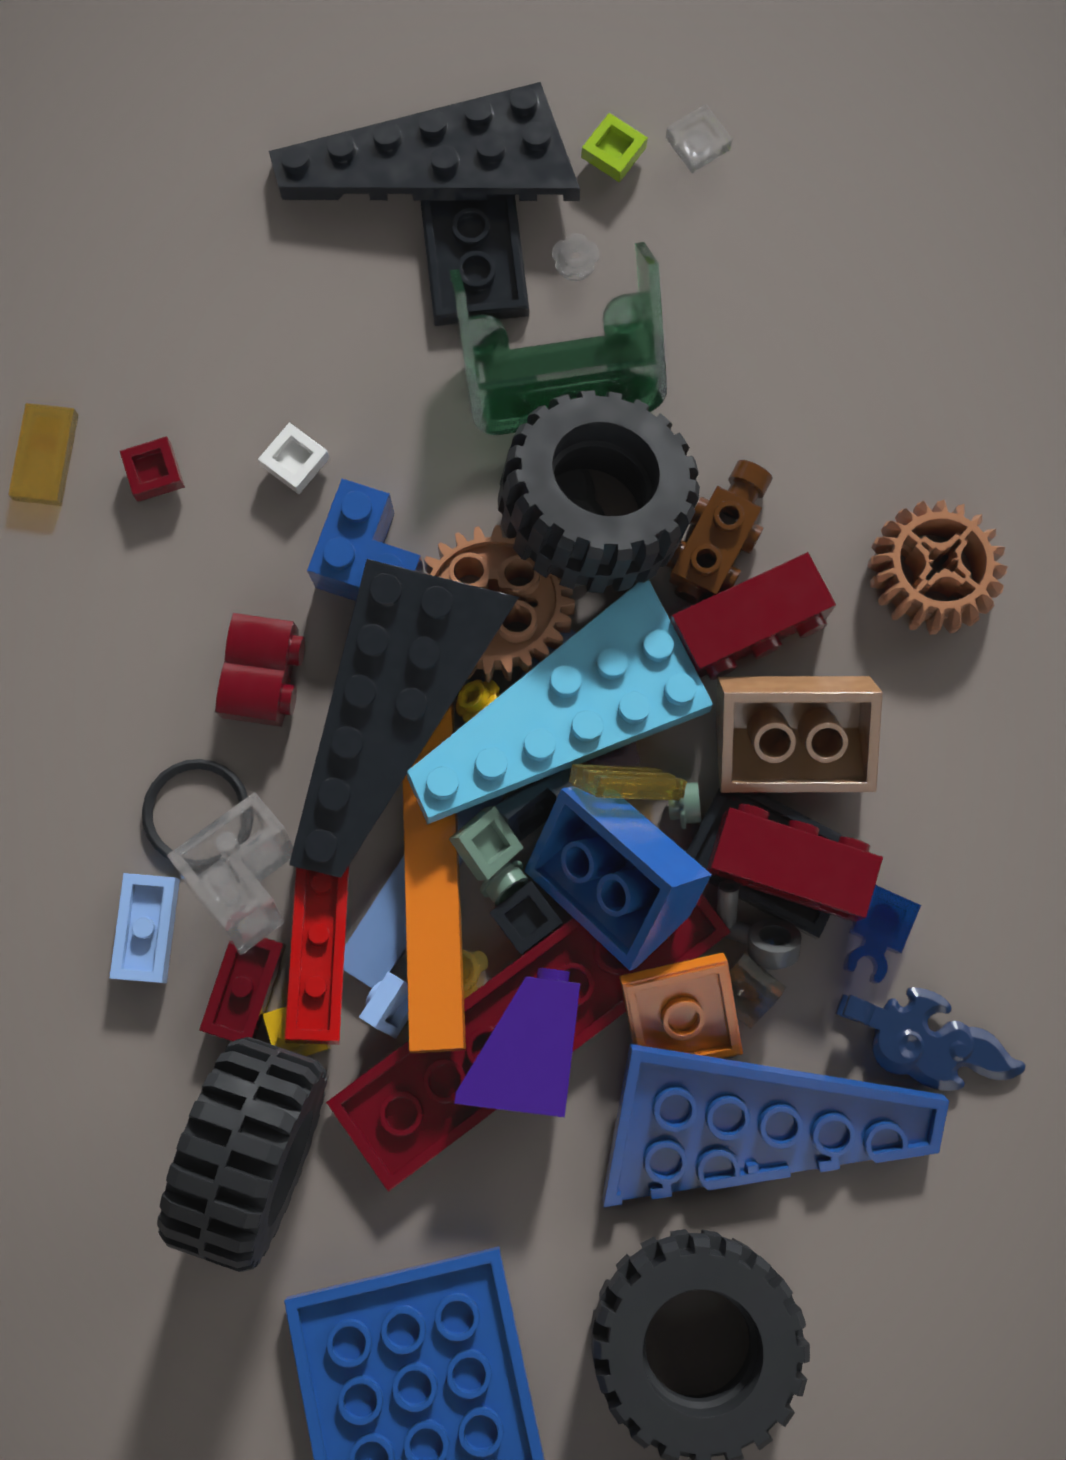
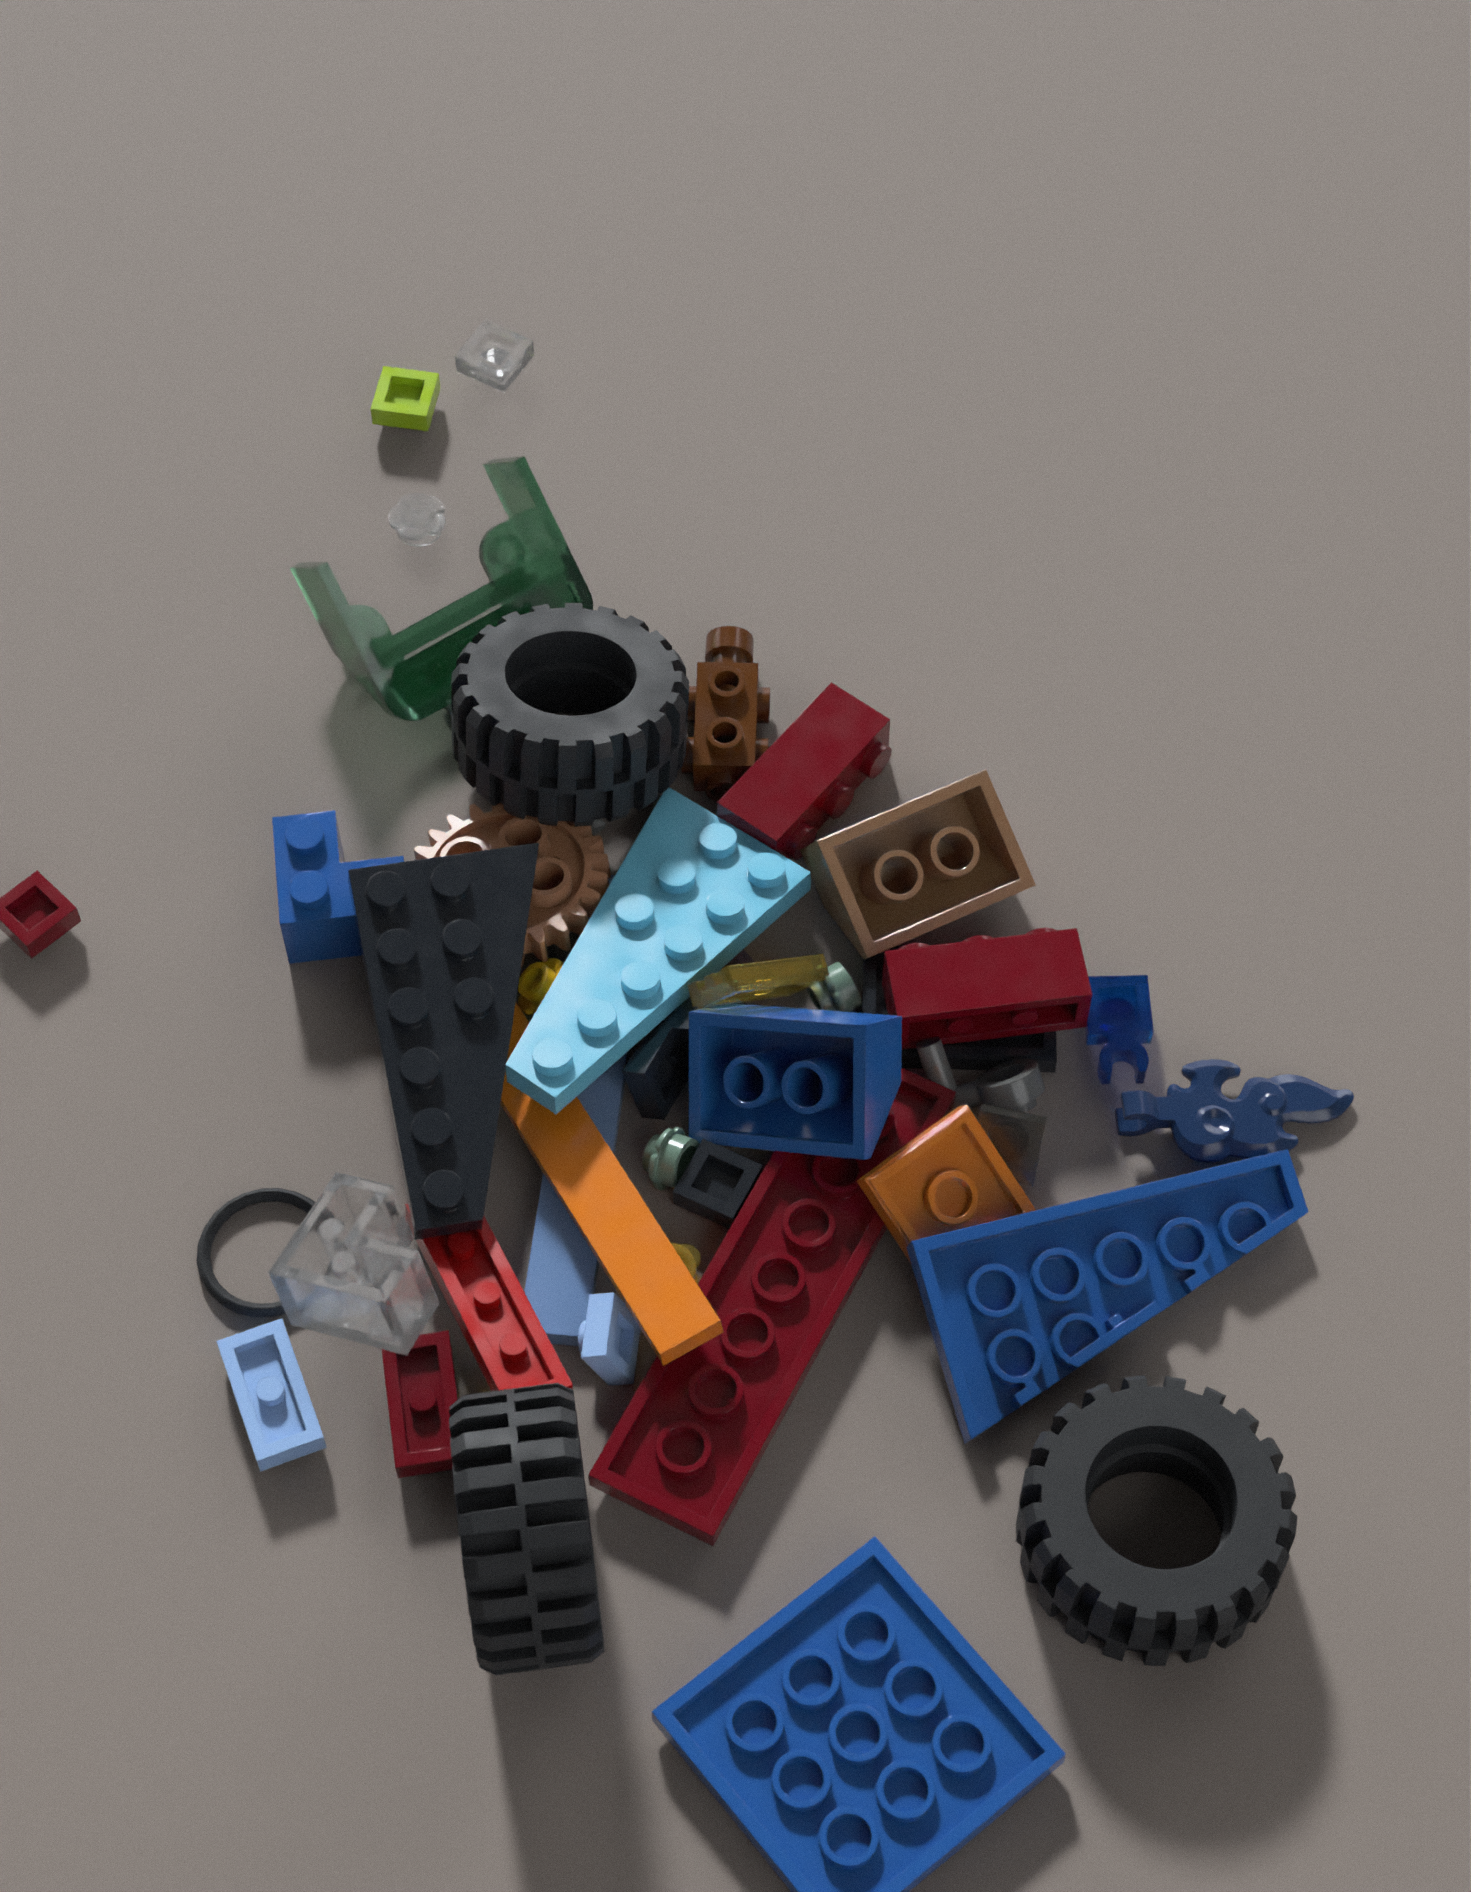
camera: 25 degrees left, 20 degrees down
(259, 670) = (270, 1063): dark red brick -> none
(294, 458) = (198, 836): white plate -> none
(443, 154) = (209, 478): black wing -> none
(485, 247) = (289, 527): black tile -> none
(486, 843) = (632, 1114): sand green plate -> none
(529, 1050) = (798, 1301): dark purple slope -> none
(963, 535) = (1010, 665): nougat gear -> none

